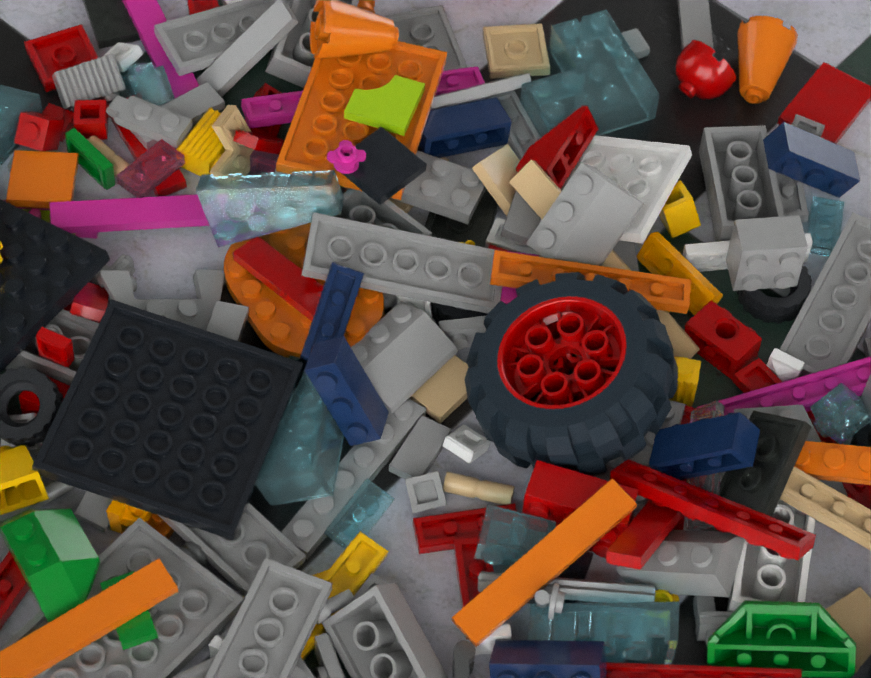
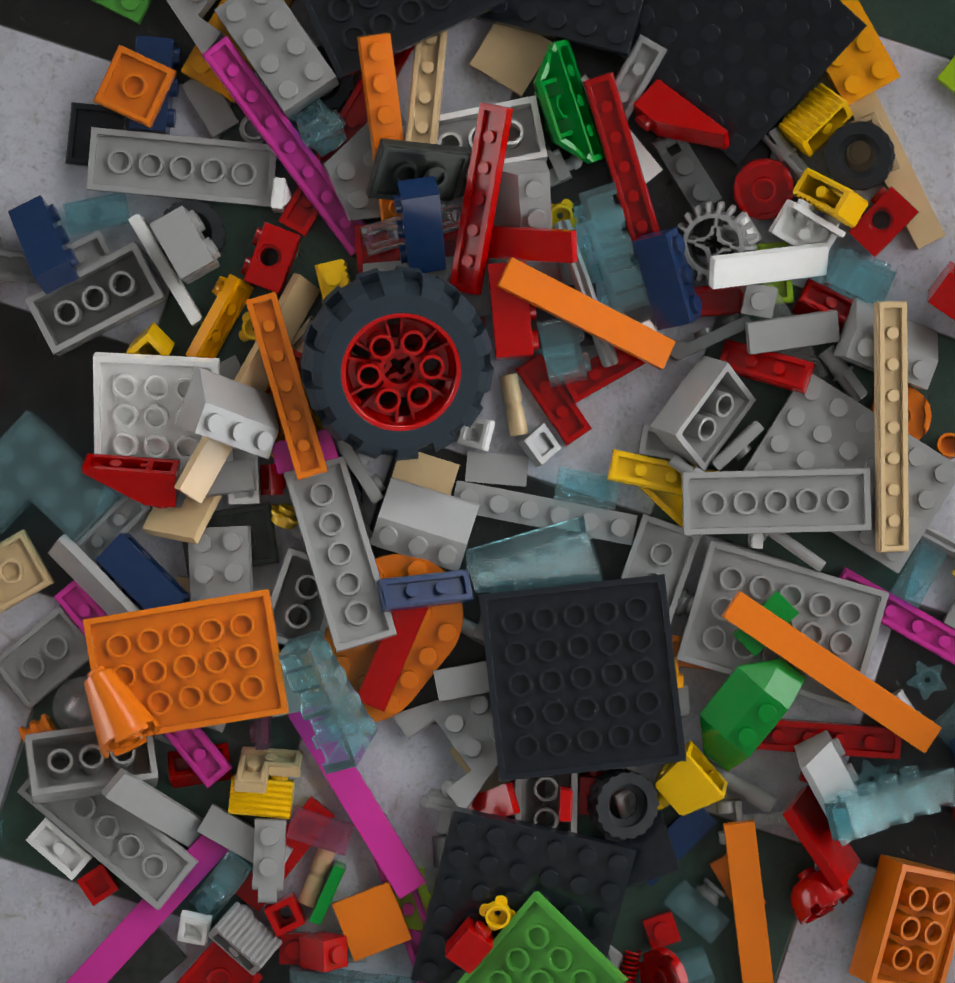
camera: 105 degrees left, 35 degrees up
(259, 141) = (248, 743): red tile -> none
(346, 157) = (258, 652): dark pink plate -> none
(346, 391) = (496, 543): dark blue brick -> none
(386, 106) = (180, 642): lime tile -> none
(387, 166) = (251, 618): black tile -> none
(554, 601) = (617, 297): light grey plate -> none

